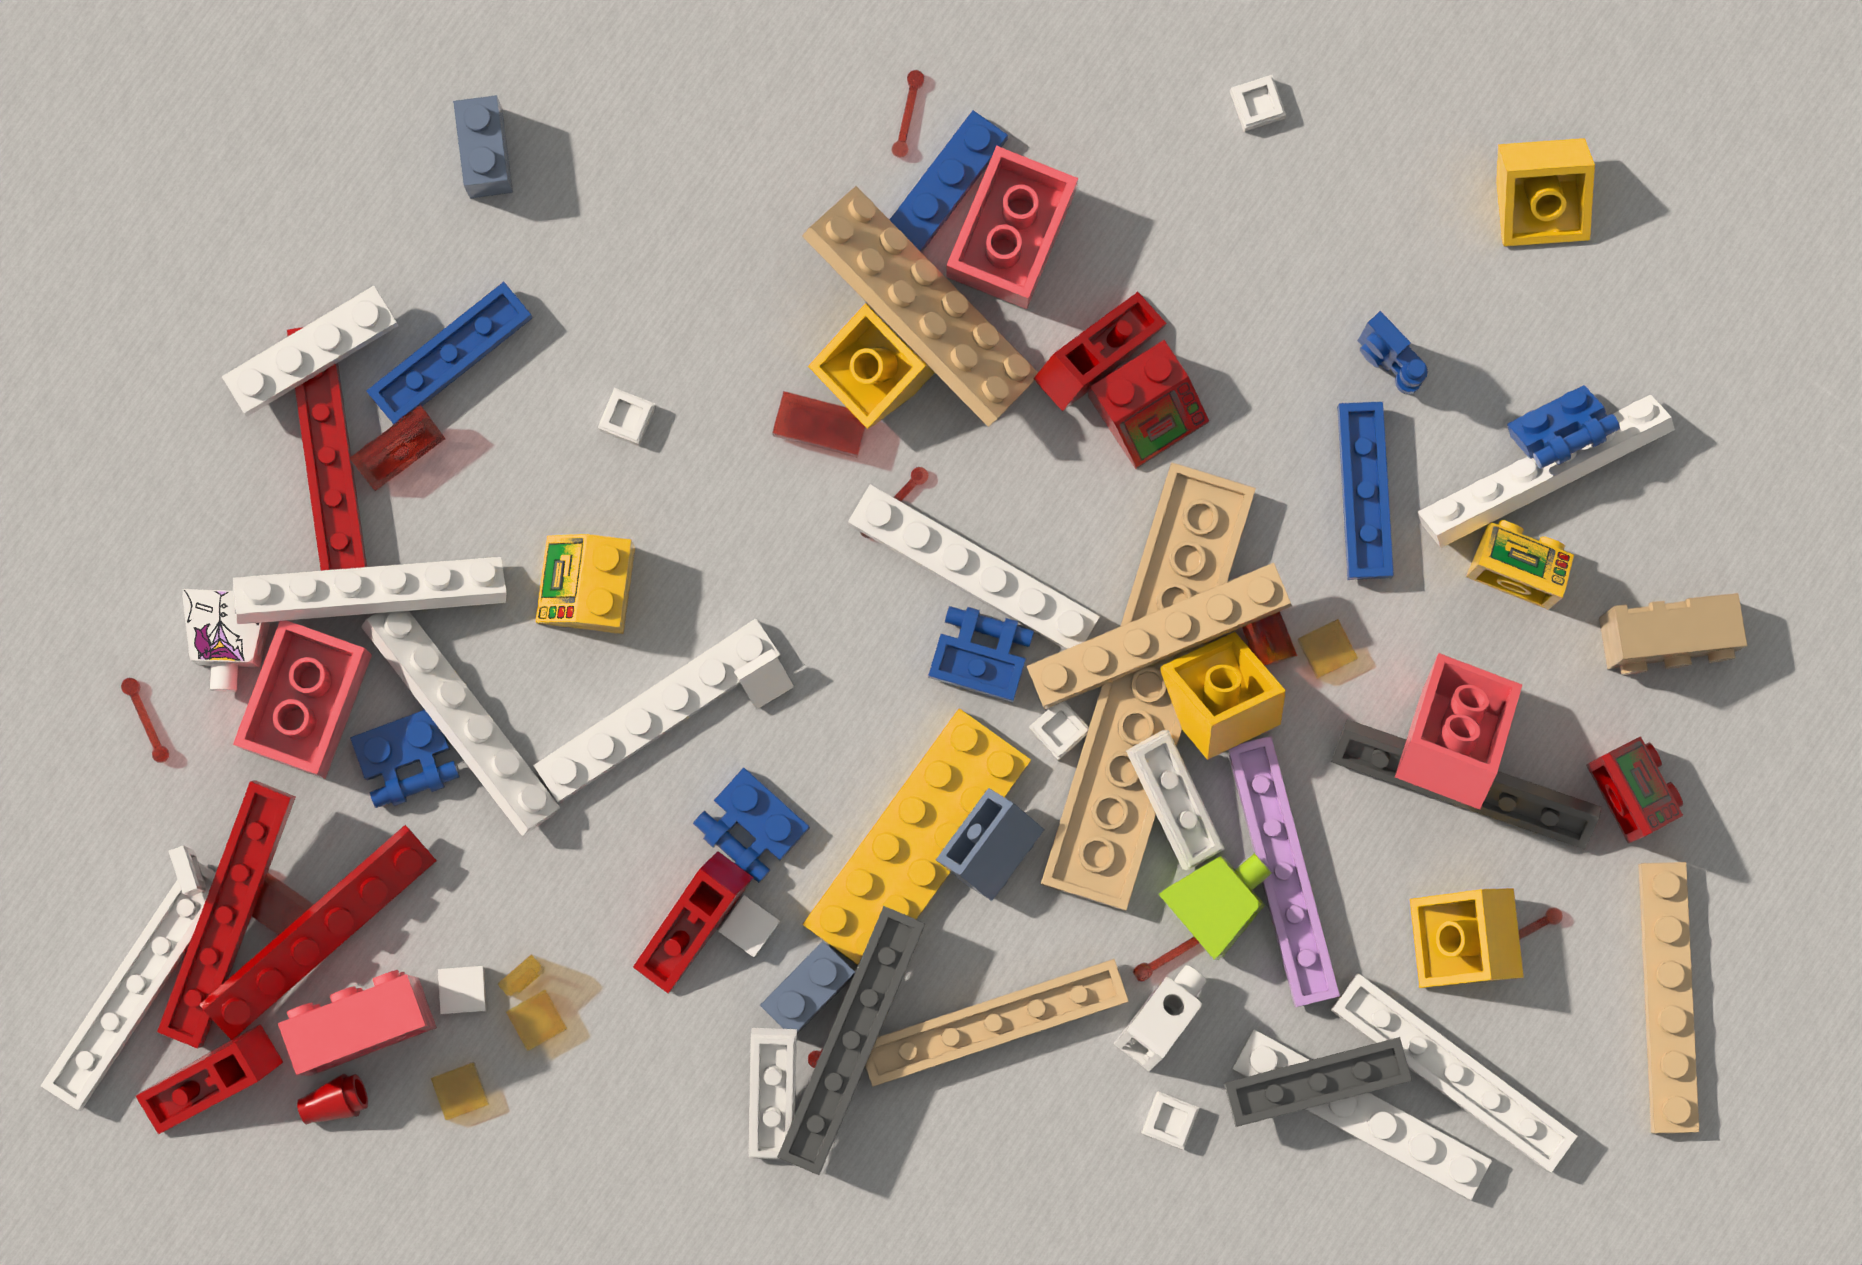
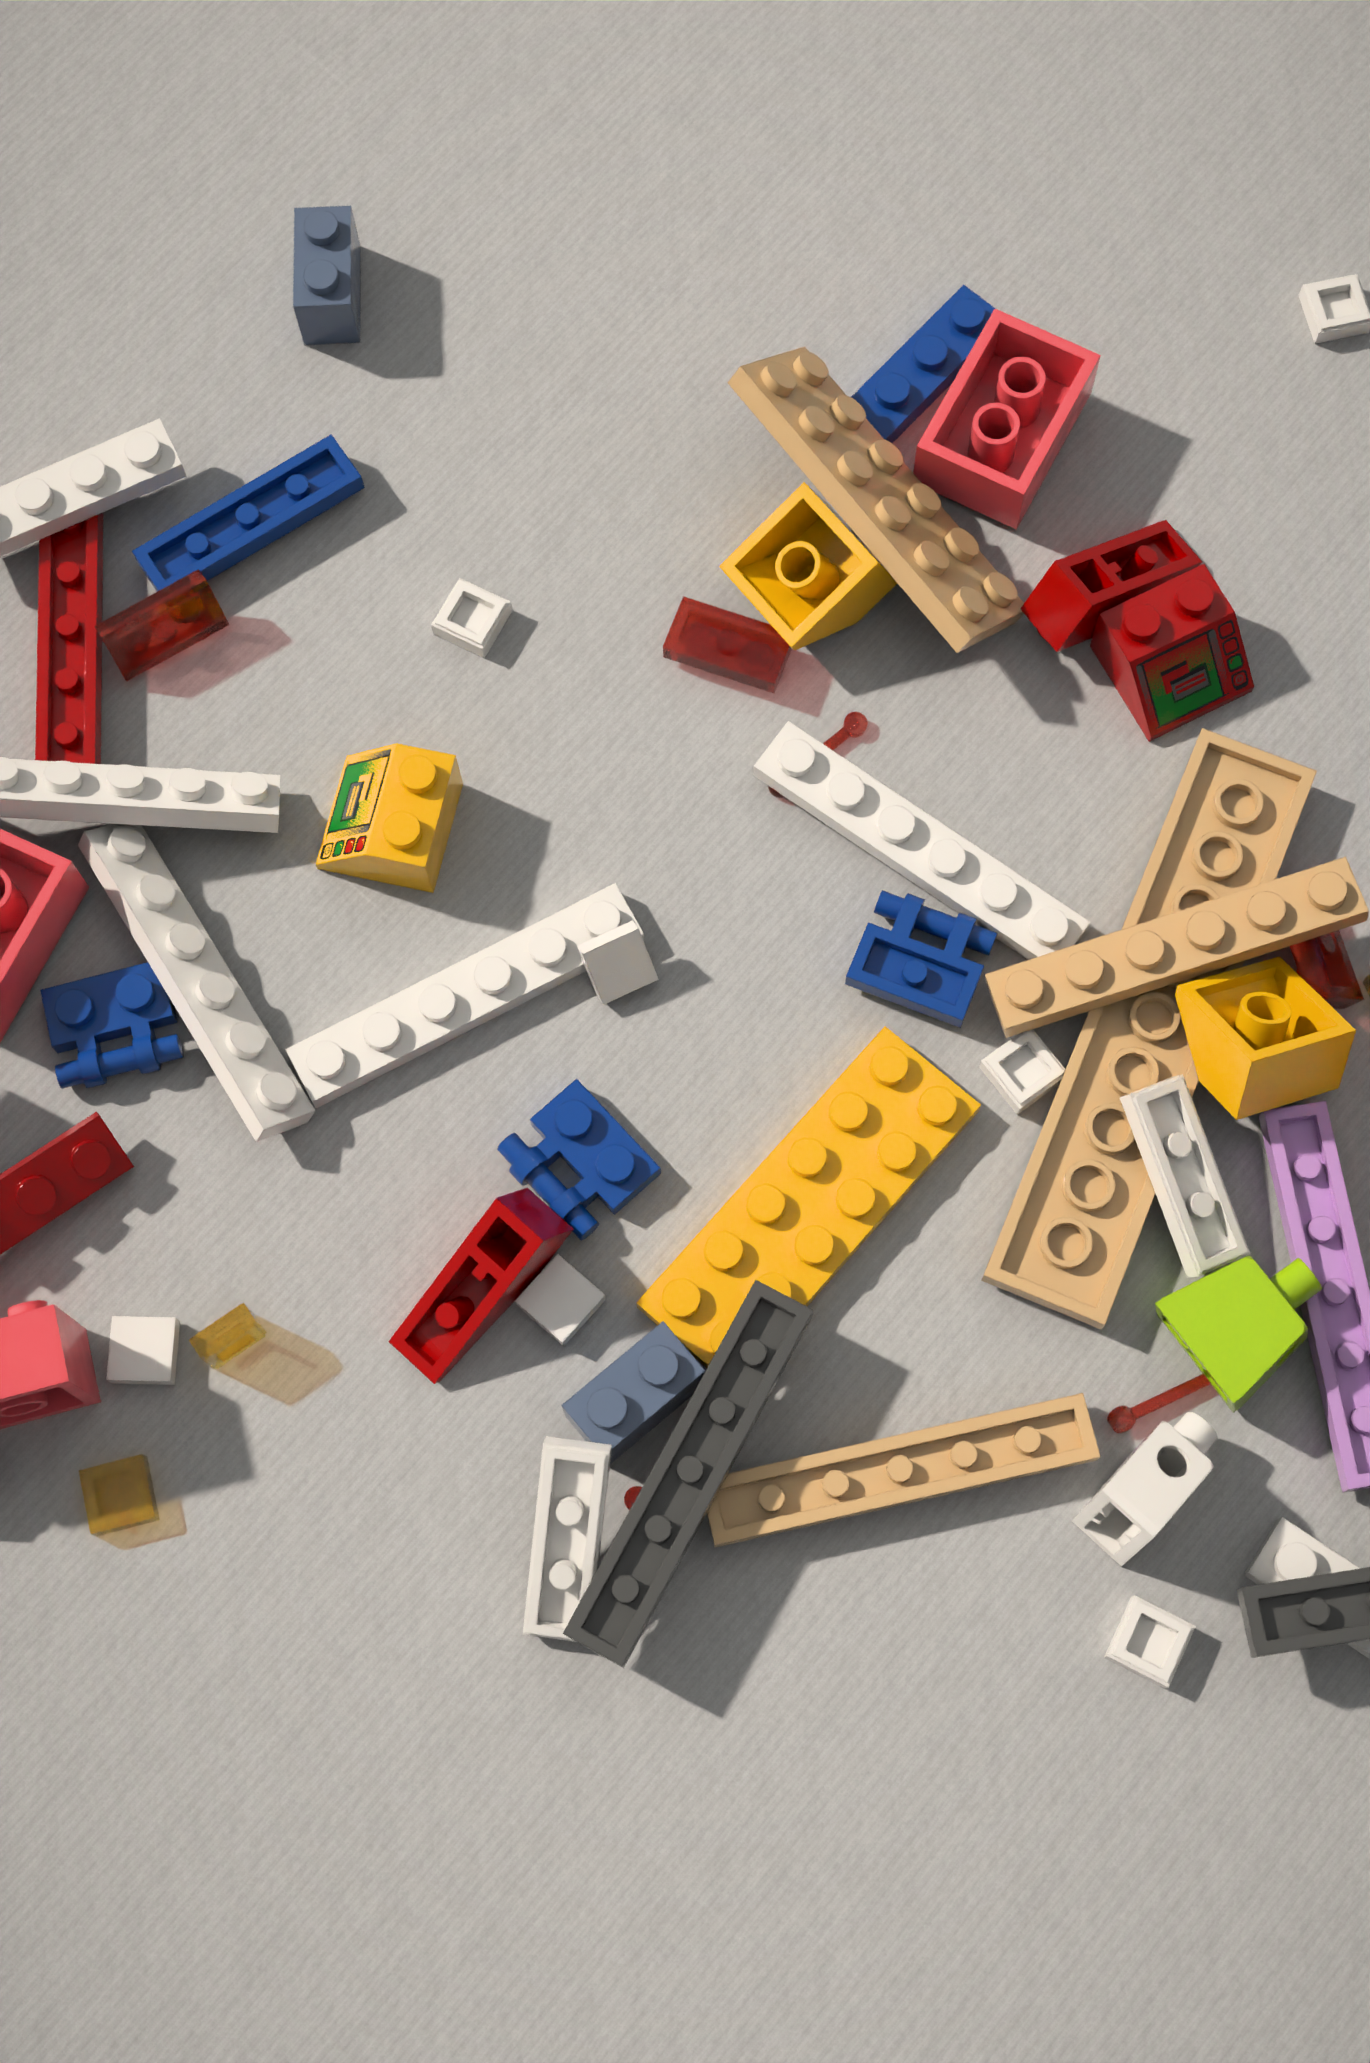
camera: 10 degrees right, 10 degrees down
(536, 1020) = (242, 1403): clear yellow tile -> none
(915, 81) = (890, 252): clear red hinge -> none
(990, 844) = (915, 1212): sand blue brick -> none

